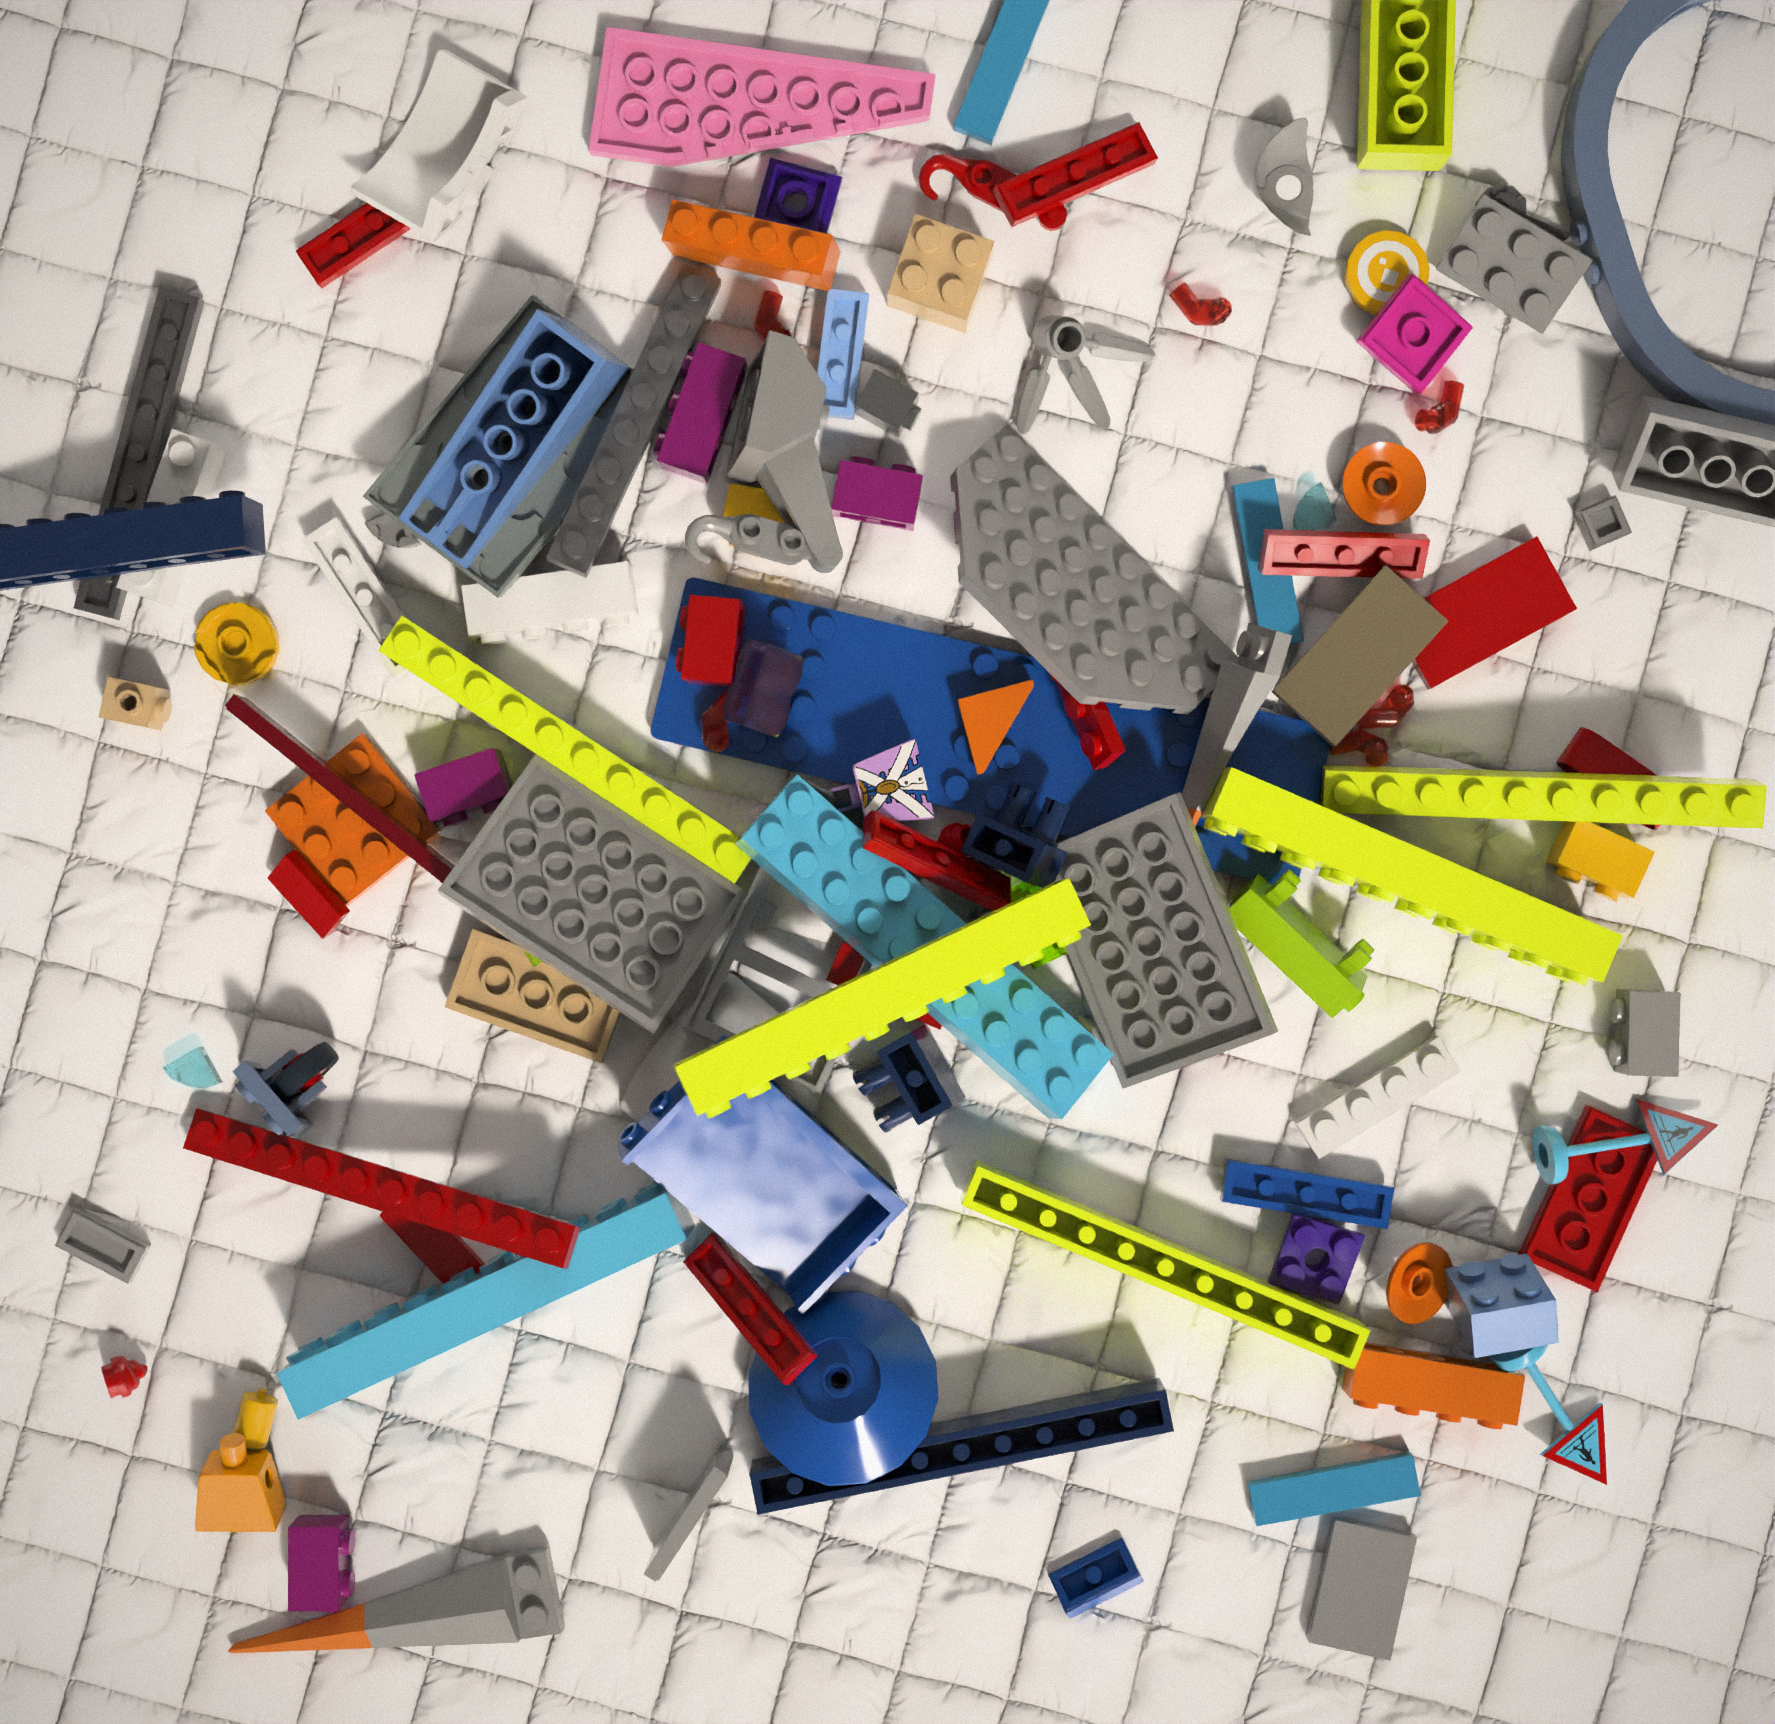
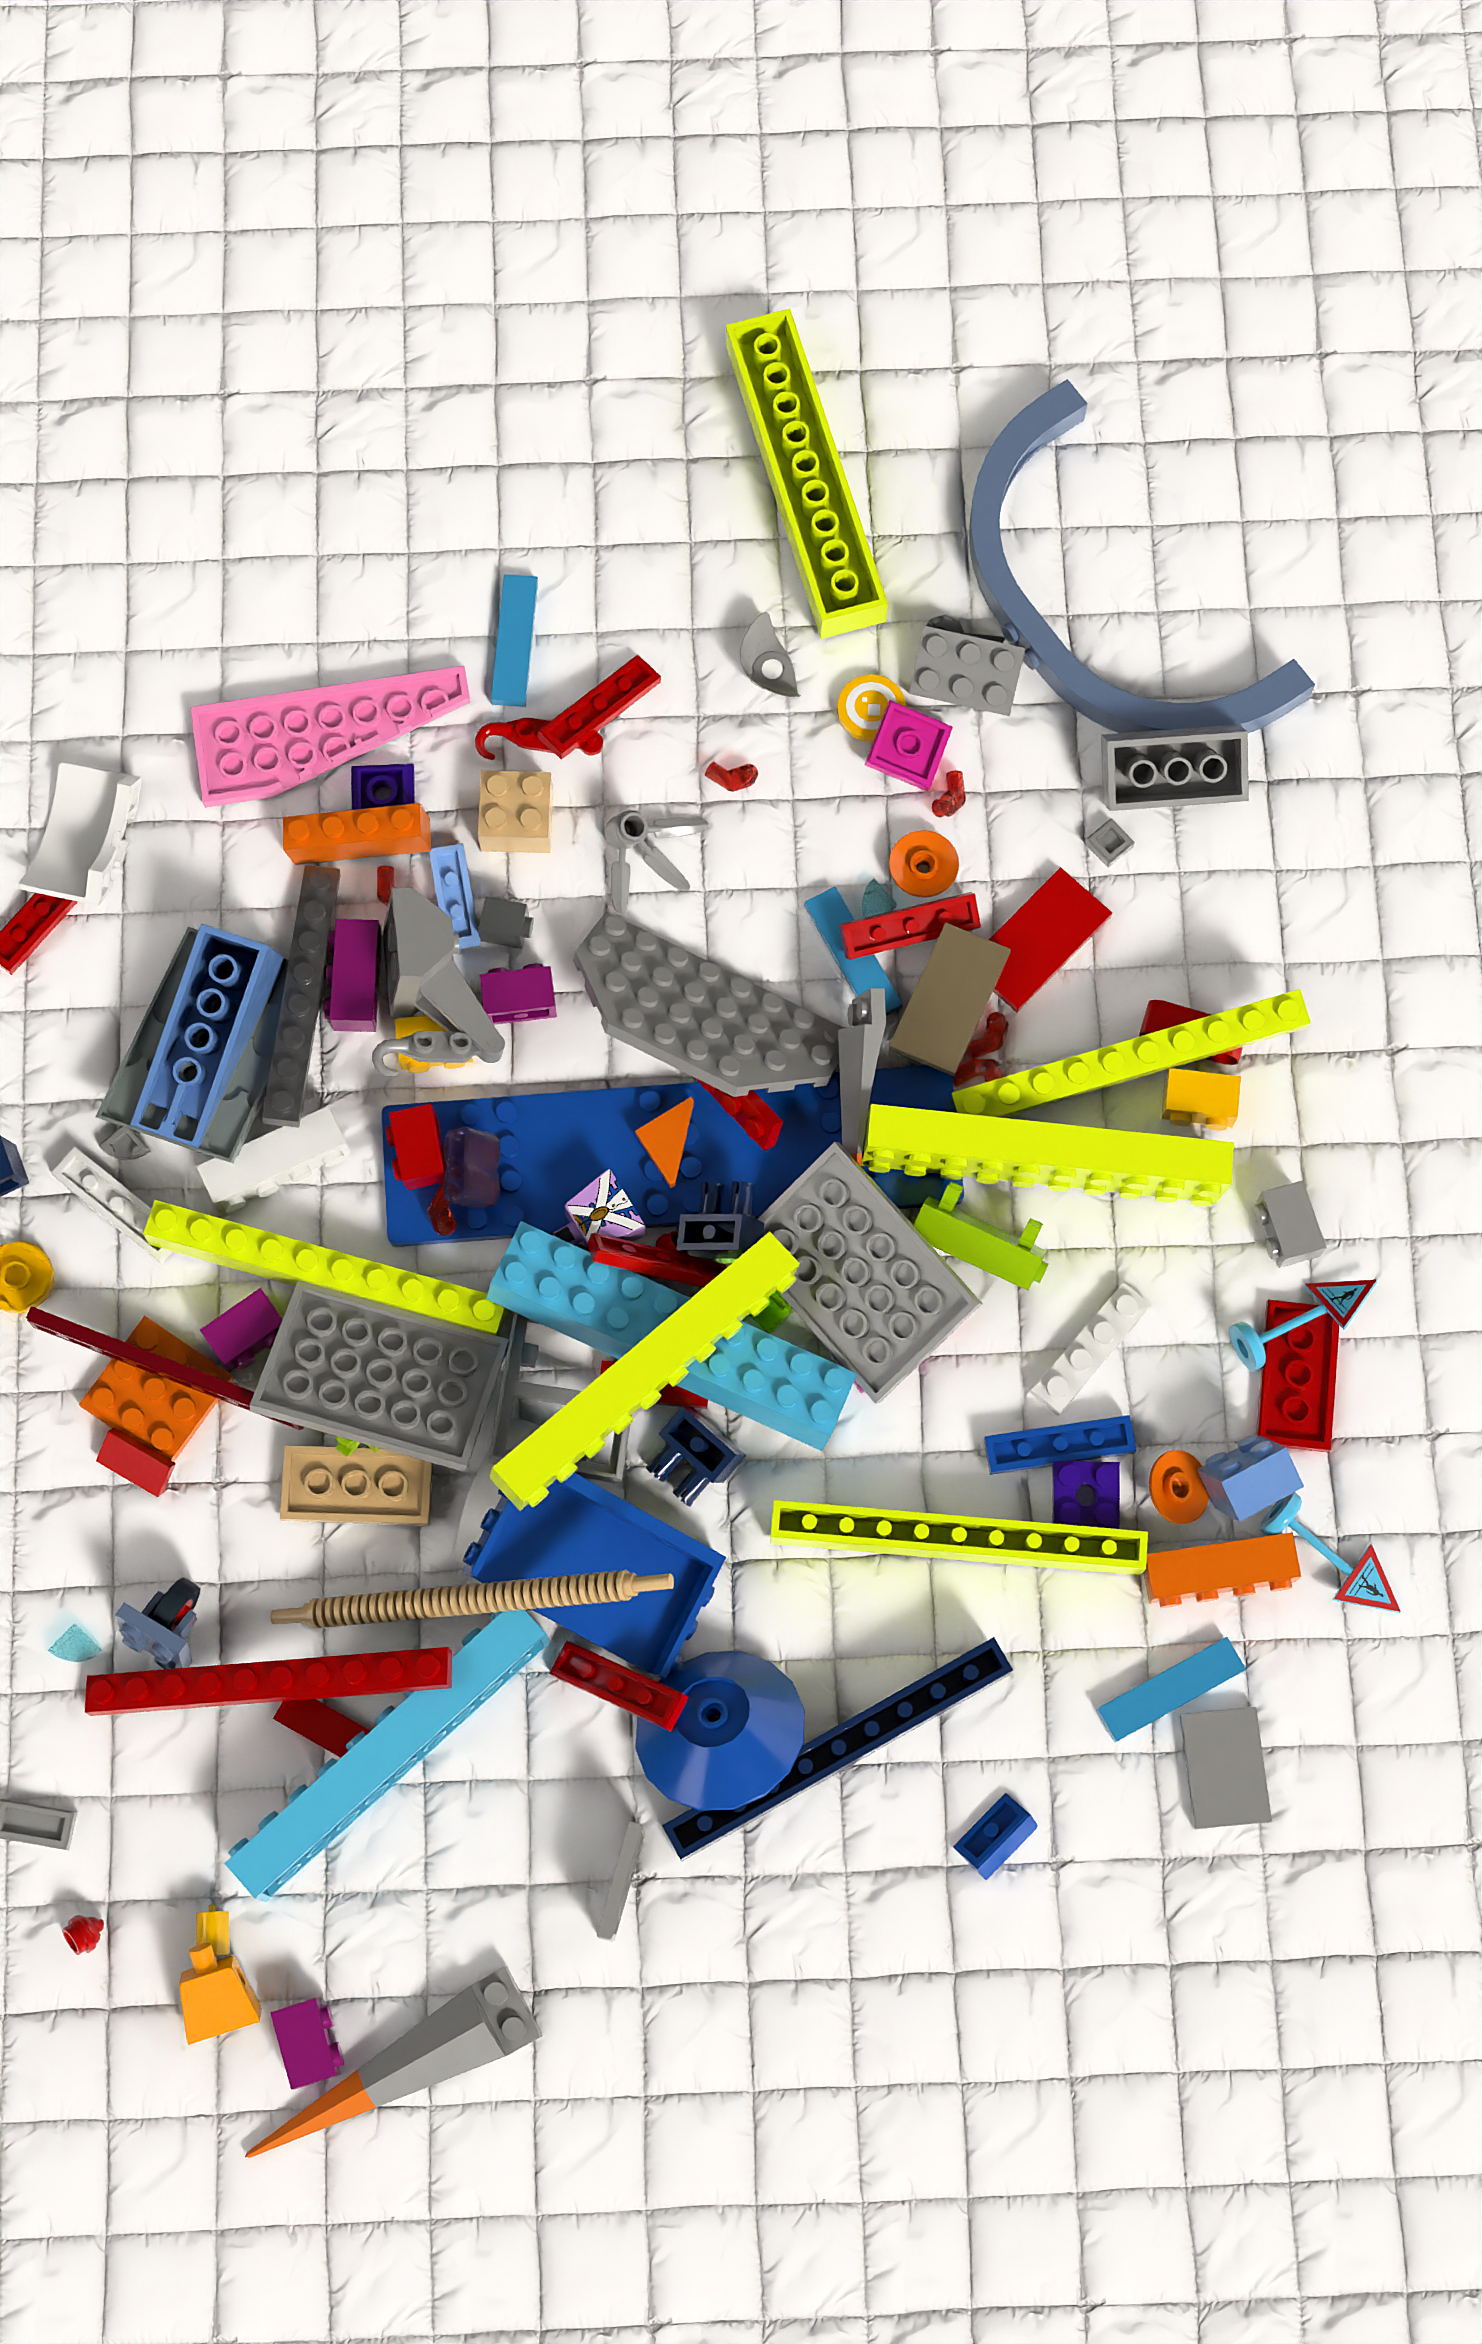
camera: 20 degrees left, 15 degrees down
(628, 1181) = (472, 1599): none -> tan hose

